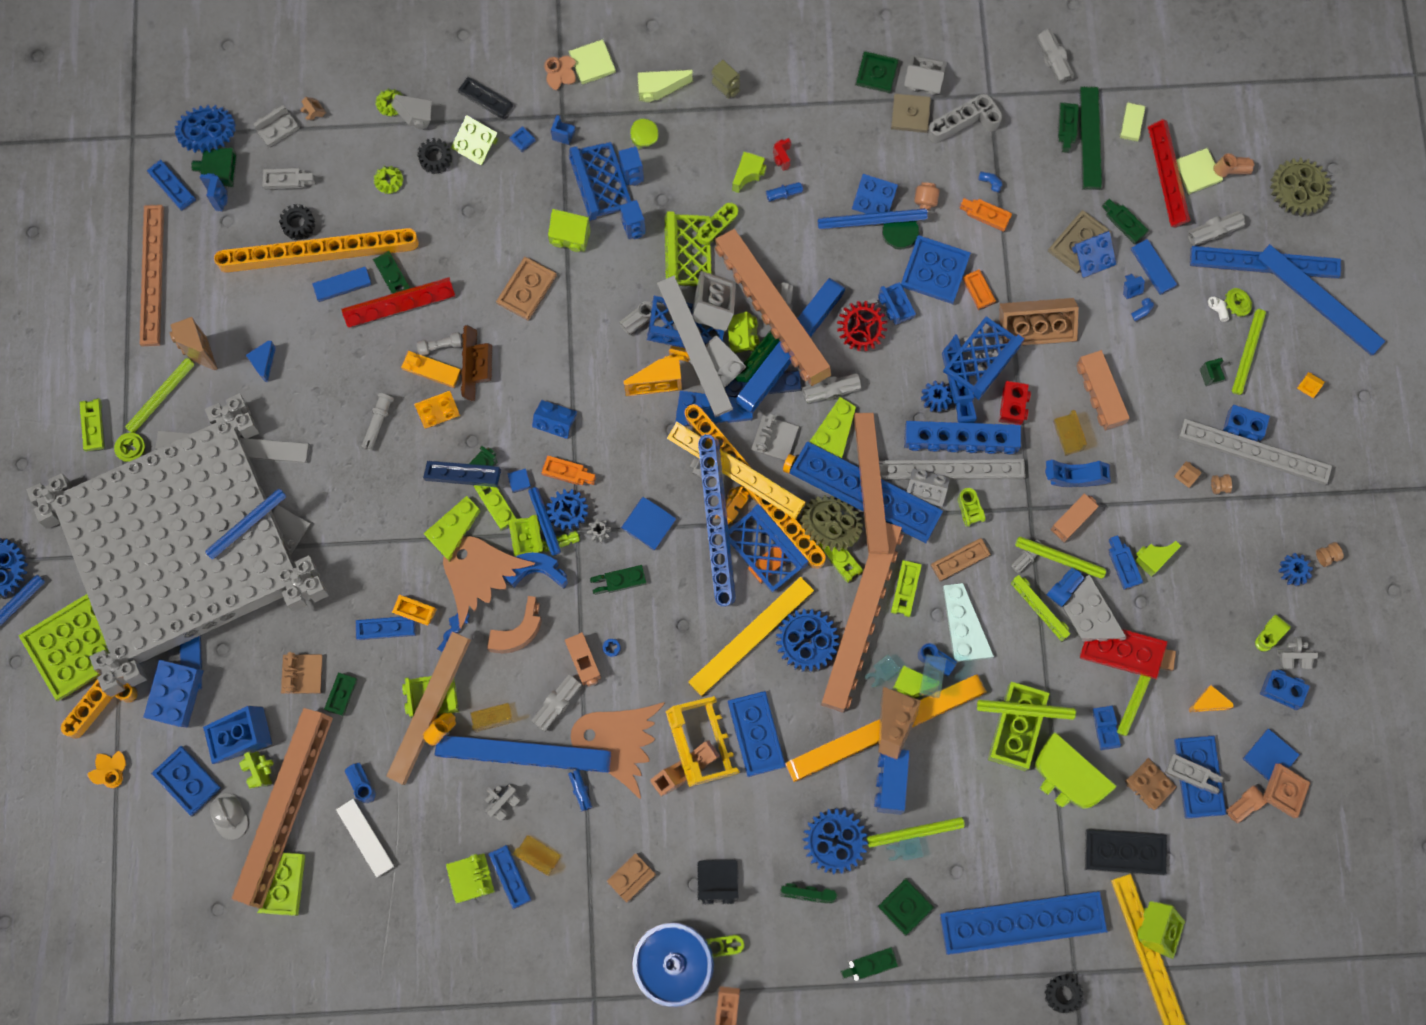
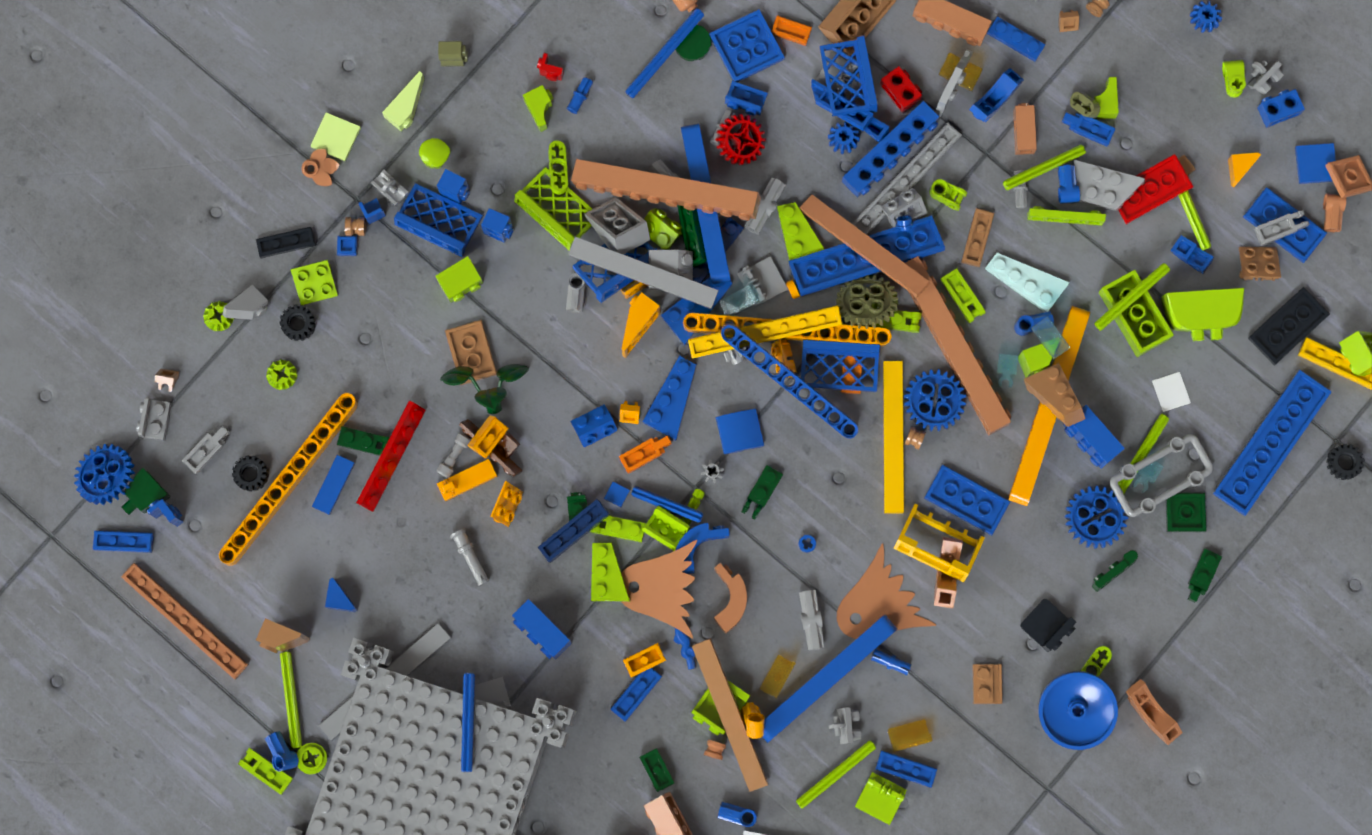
camera: 45 degrees left, 5 degrees up
(112, 426) = (282, 757): none -> blue piece
(301, 674) = (613, 785): medium nougat hinge -> none
(366, 516) = (541, 630): none -> blue brick
(393, 722) = (714, 749): none -> nougat wheel
(458, 828) = (836, 774): none -> lime axle
(473, 352) = (487, 436): none -> light orange slope
(504, 327) = (488, 398): none -> dark green plant
(540, 130) = (355, 226): none -> medium nougat wheel
(573, 505) = (663, 477): blue gear -> none
(583, 659) = (798, 572): nougat brick -> none
(586, 434) = (629, 413): none -> light orange tile
(589, 128) = (390, 188): none -> light grey hips
(621, 456) = (669, 405): none -> blue wing
(743, 434) = (739, 301): none -> clear light blue plate
(765, 652) = (915, 438): none -> medium nougat wheel
(874, 195) = (648, 35): blue hinge -> none
(881, 871) = (1193, 478): none -> light grey bar
(916, 495) = (904, 222): none -> blue plate
(987, 810) = (1171, 391): none -> white sticker
(1060, 429) = (957, 78): none -> light grey wing
(1136, 450) = (1016, 39): none -> blue plate
(1137, 543) = (1083, 107): none -> olive beam

